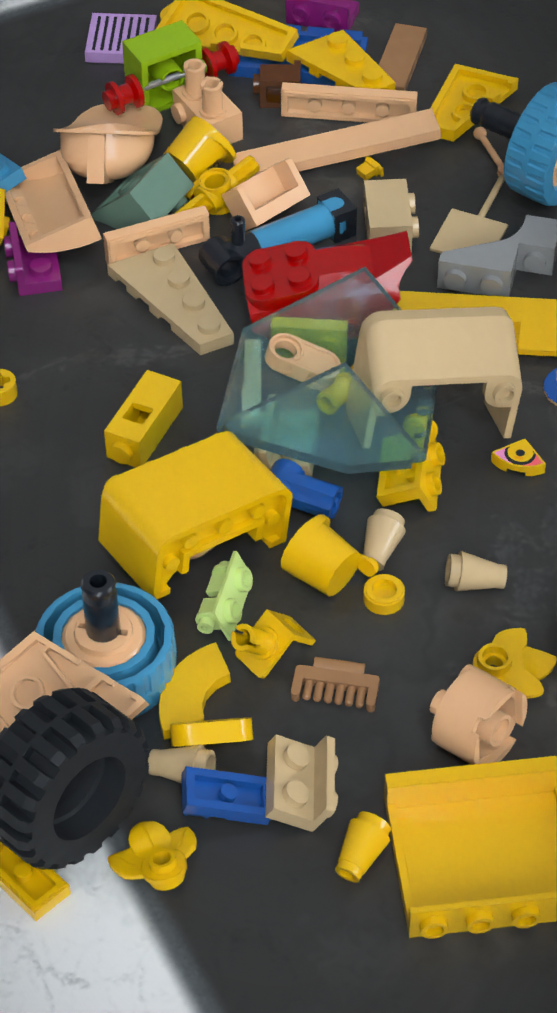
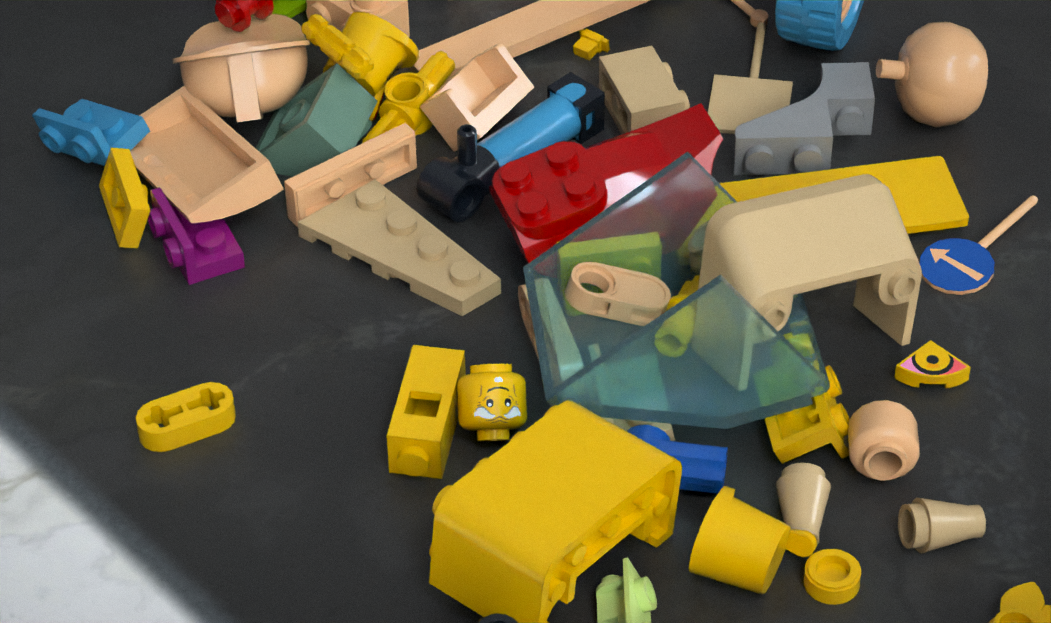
camera: 15 degrees left, 5 degrees down
(172, 140) = (337, 46): none -> yellow axle
(189, 419) = (492, 401): none -> yellow head
(456, 504) = (883, 440): none -> light nougat head

